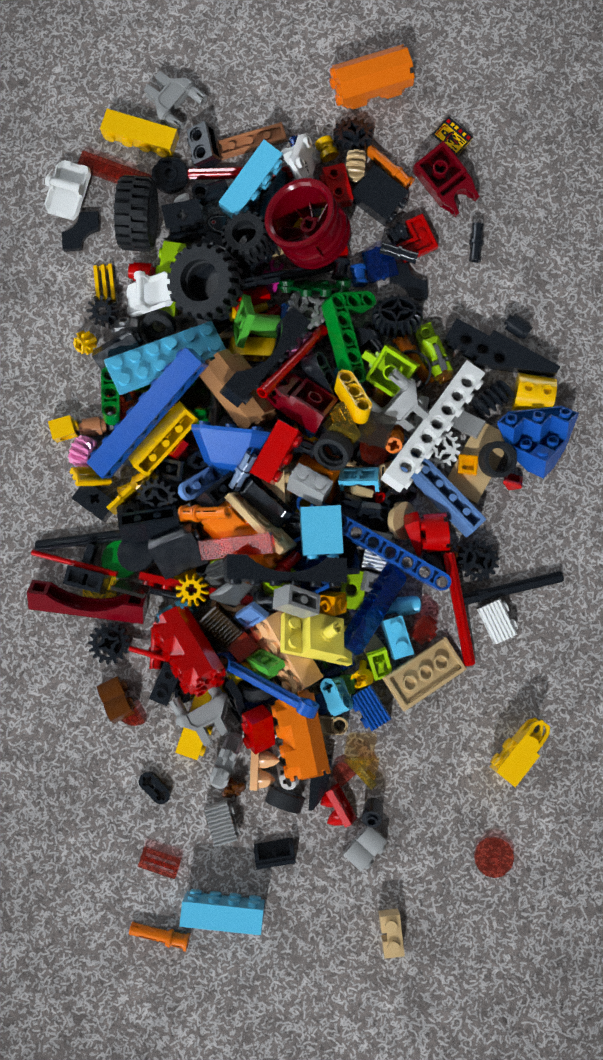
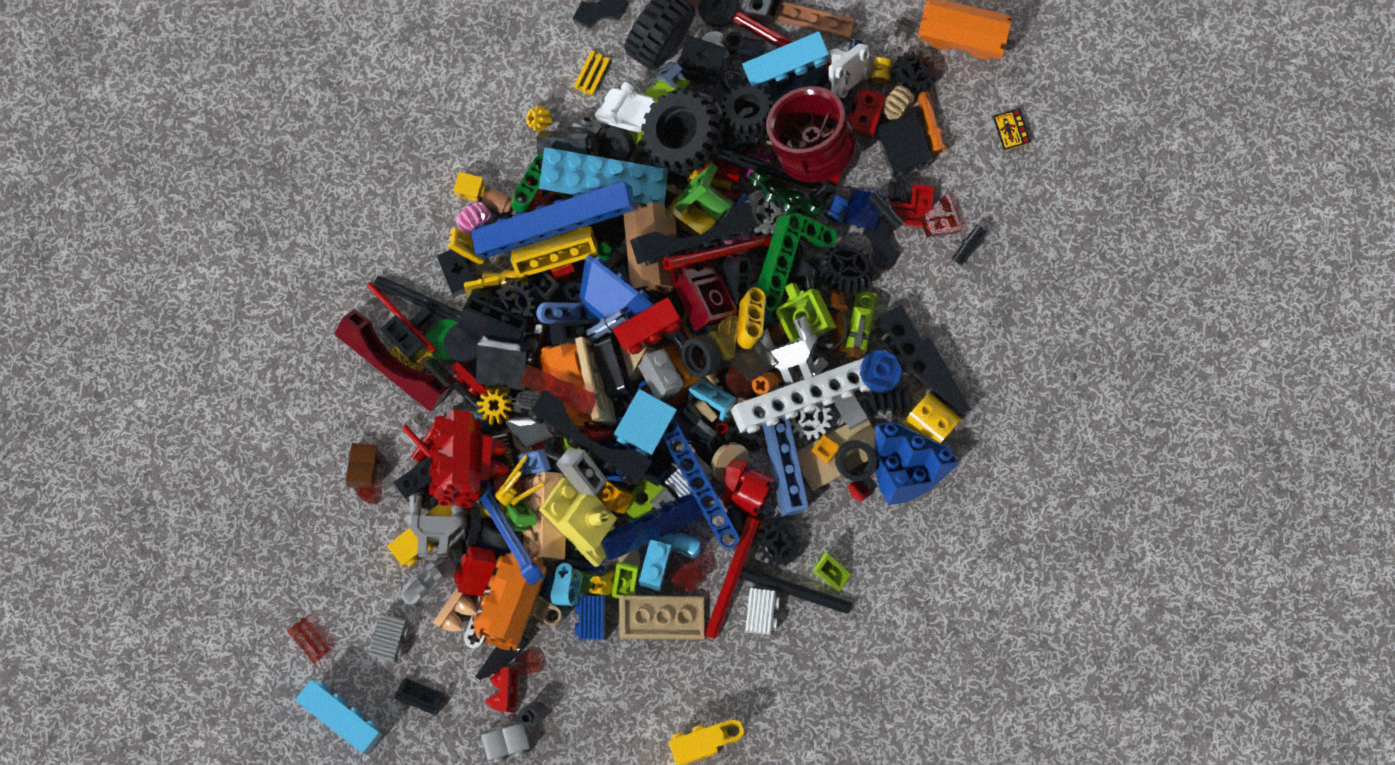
camera: 30 degrees right, 5 degrees down
(101, 303) = (574, 90): black gear -> none
(112, 651) = (389, 402): black gear -> none
(140, 266) = (635, 80): red brick -> none
(151, 791) = (352, 568): black beam -> none
(165, 243) = (668, 72): none -> sand blue tile
(168, 937) = (275, 712): orange pin -> none
(198, 513) = (543, 338): orange pin -> none
(220, 640) = (489, 467): none -> red tile
(233, 789) = (418, 614): reddish brown plant -> none
(245, 653) = (507, 493): none -> yellow plant
(285, 799) = (459, 651): black tyre -> none
(322, 104) = (905, 25): none -> clear smoke tile
(358, 764) = (548, 663): clear yellow slope -> none
(443, 234) = (941, 218): none -> clear red wing
(449, 183) = (975, 173): dark red brick -> none
(474, 378) = (880, 371): none -> blue tile
(518, 326) = (957, 348): black brick -> none
(530, 557) = (831, 572): none -> lime slope

